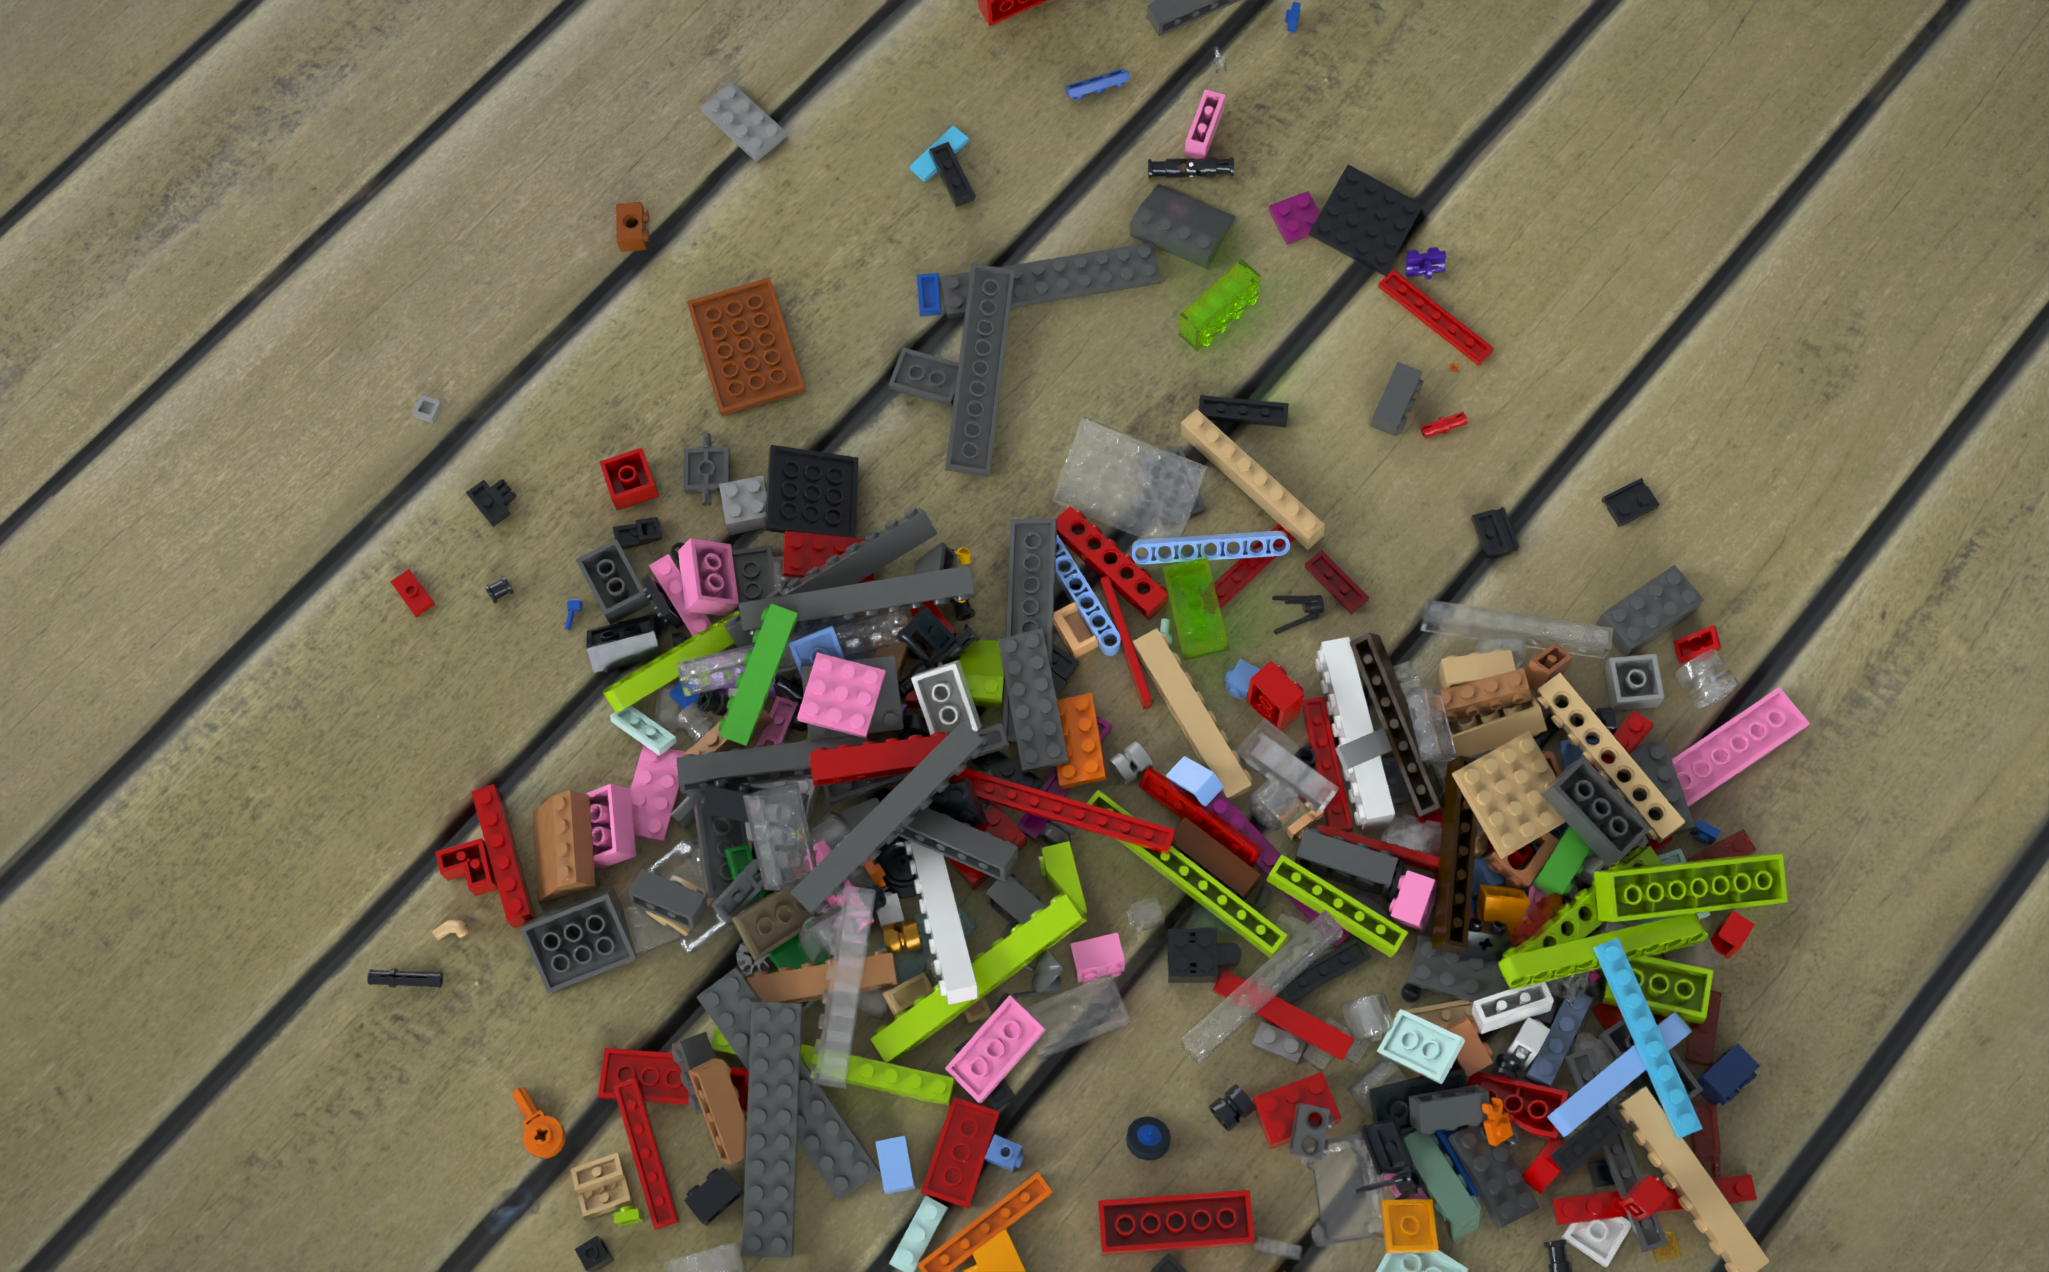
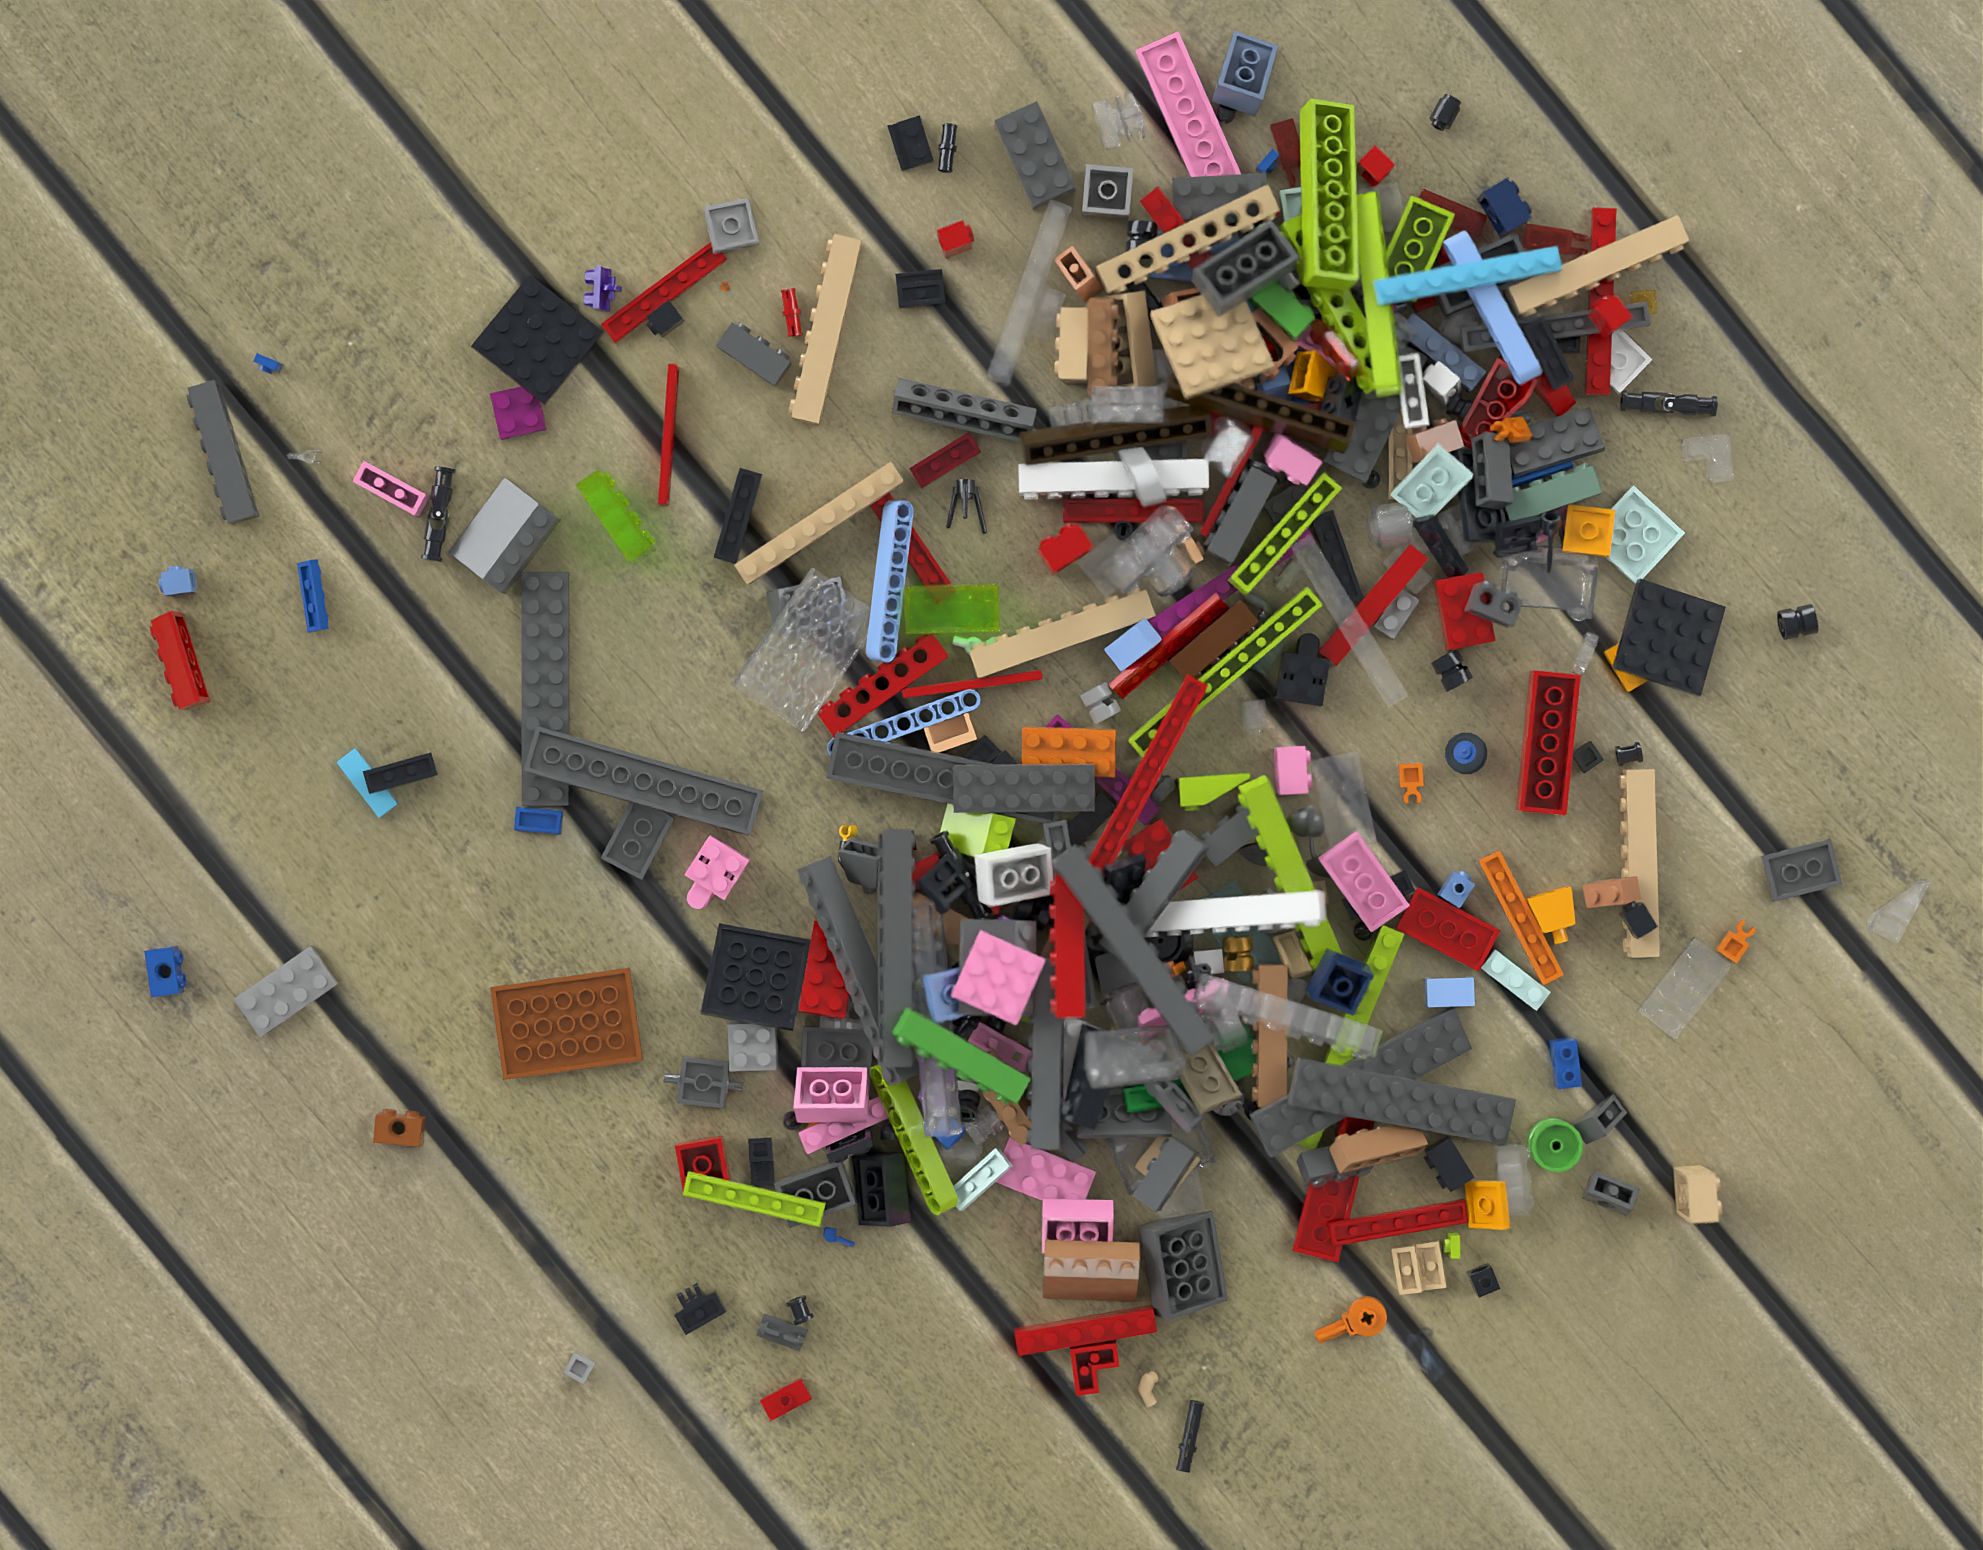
camera: 85 degrees left, 20 degrees up
(476, 577) = (782, 1332): none -> dark grey hinge
(599, 523) = (754, 1199): none -> lime tile
(674, 1243) = (1487, 1204): none -> light orange plate
(747, 25) = (158, 983): none -> blue brick
(887, 1038) = (1340, 982): none -> dark blue brick
(906, 445) = (714, 872): none -> bright pink brick
(939, 1067) = (1363, 937): none -> black hinge
(1112, 1085) = (1411, 777): none -> orange plate
(1239, 679) = (1032, 577): medium blue brick -> none
(1305, 339) = (668, 434): none -> red tile
(1358, 1070) = (1440, 546): none -> black plate
(1388, 585) = (962, 410): none -> dark grey brick
(1410, 319) = (664, 319): none -> black brick
(1435, 456) = (826, 329): none -> tan brick
(1511, 360) = (731, 225): none -> light grey tile
(1551, 550) = (955, 238): none -> red brick
(1635, 534) = (947, 148): none -> black pin
(1697, 644) = (1078, 119): red slope -> none
(1743, 784) = (1226, 113): none -> black hinge
(1786, 794) = (1245, 73): none -> sand blue slope
(1805, 1000) = (1445, 112): none -> black brick

